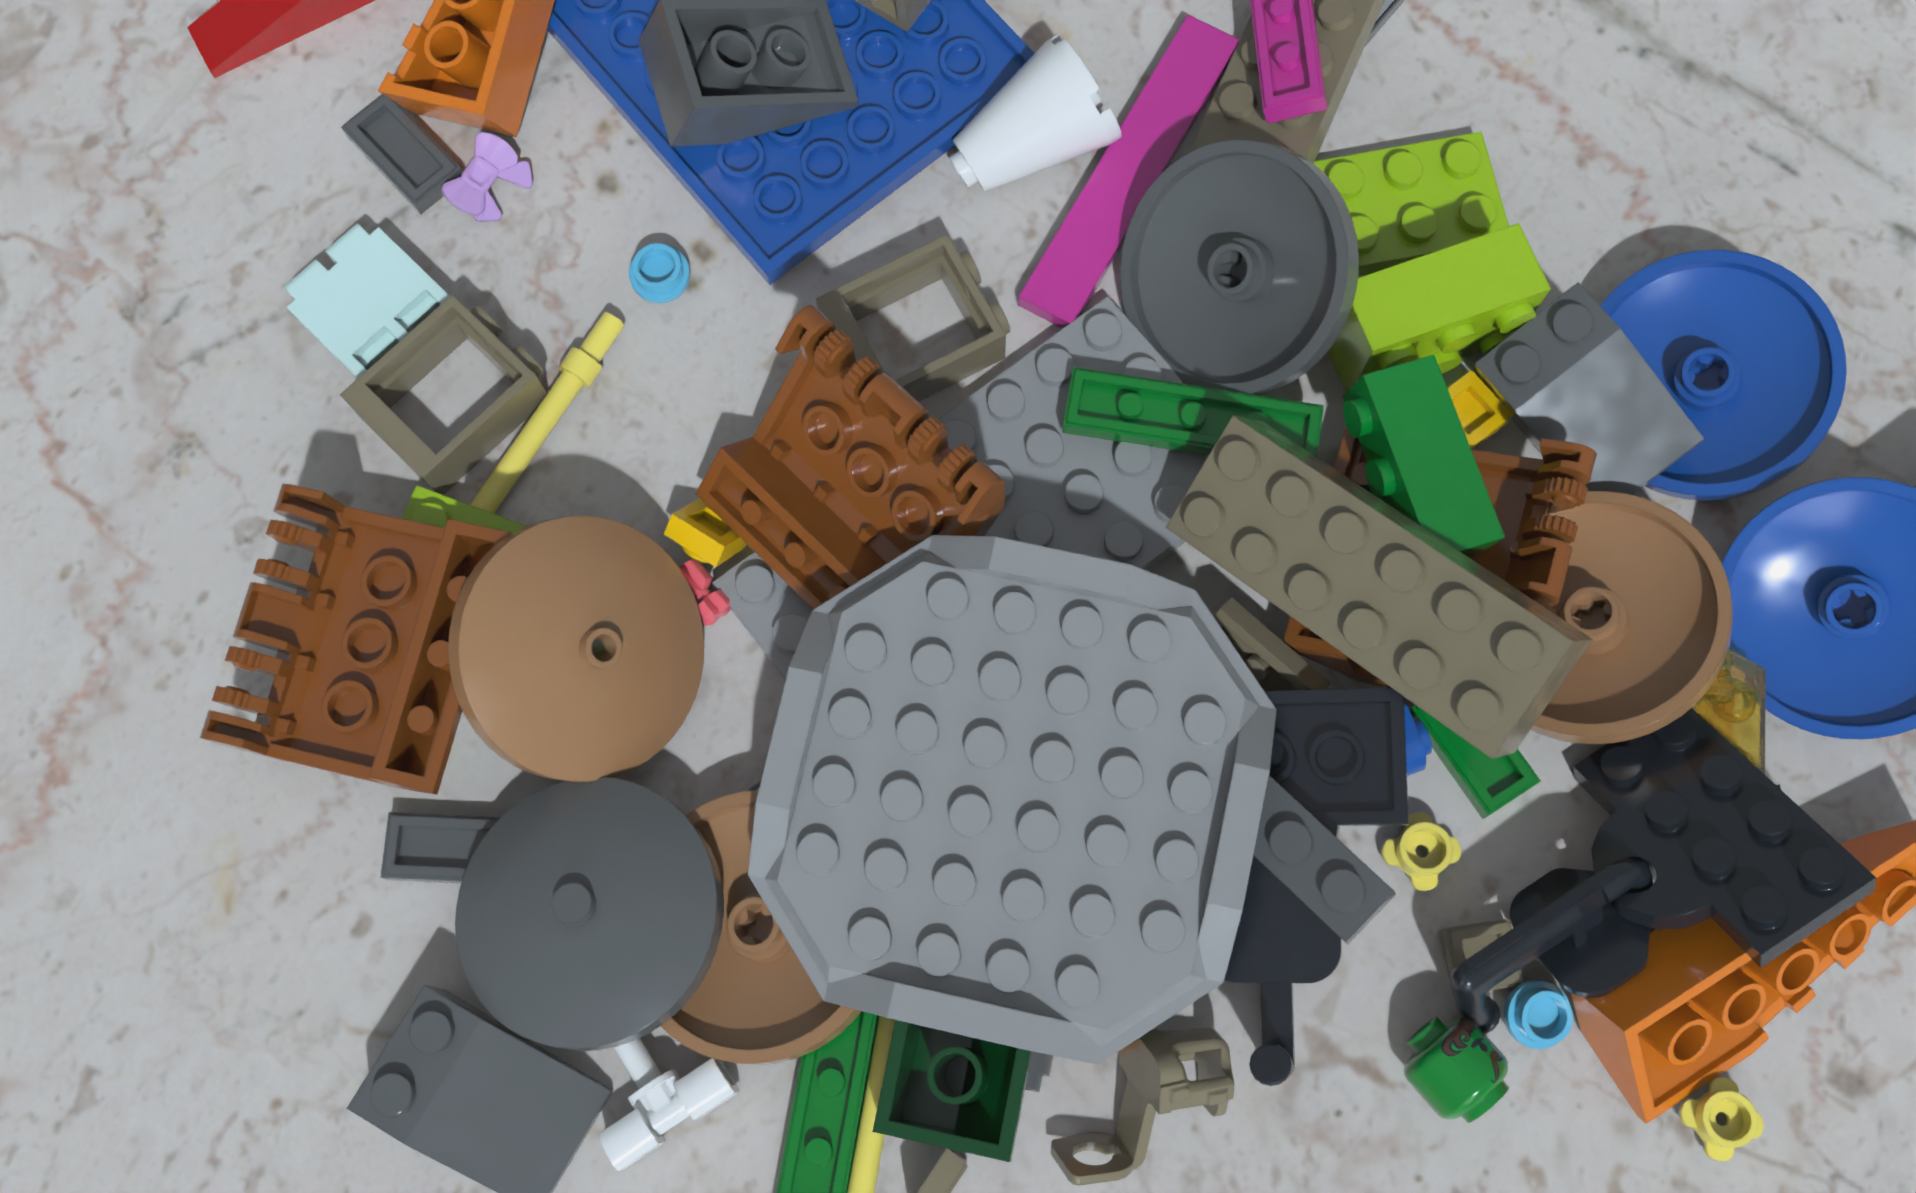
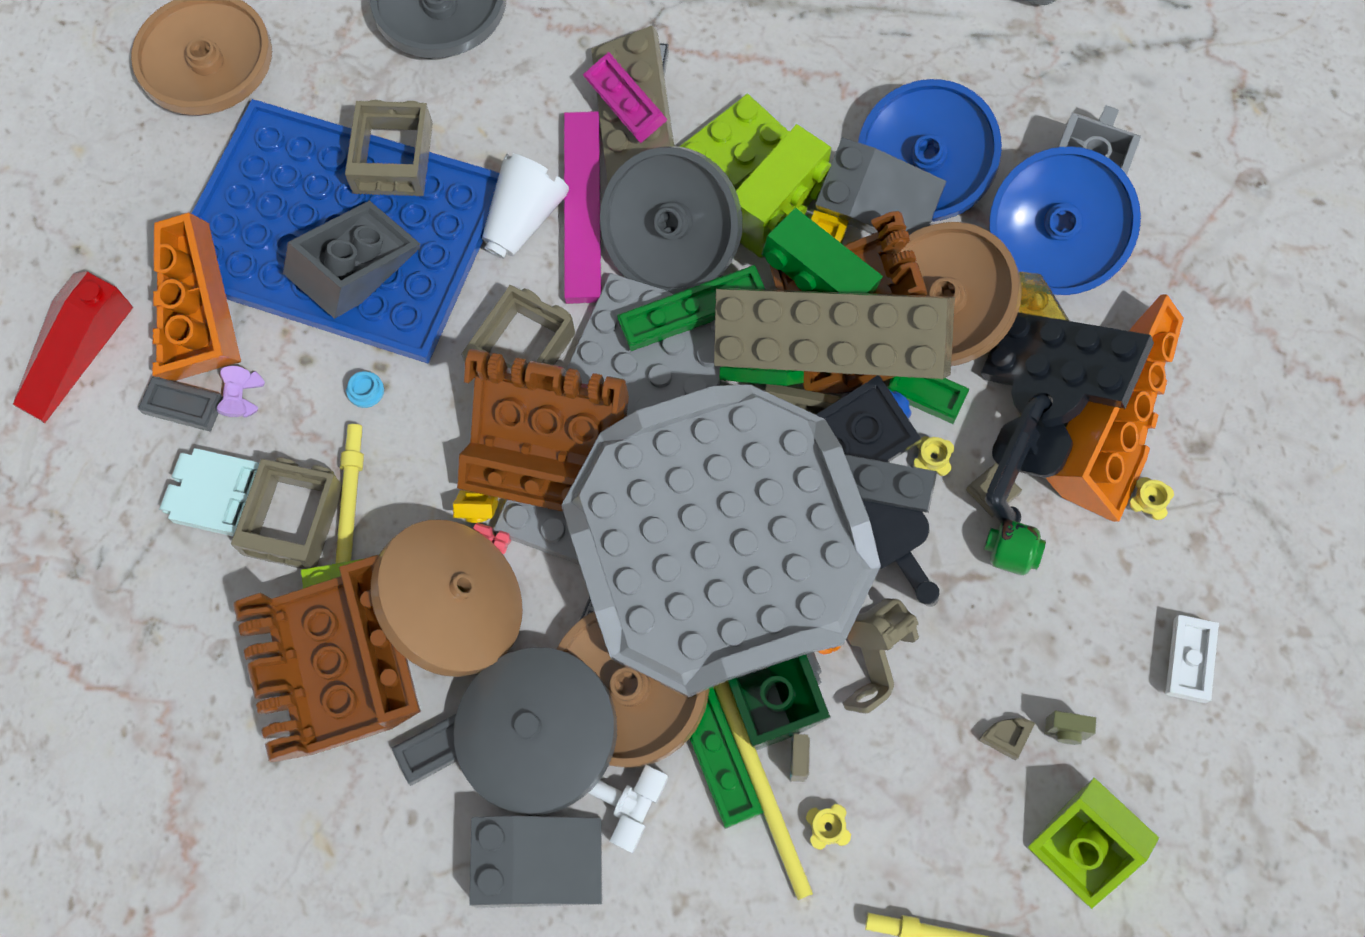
camera: 30 degrees left, 5 degrees down
(1228, 586) = (761, 376): none -> green tile
(1538, 1014) = (1037, 500): medium azure plate -> none

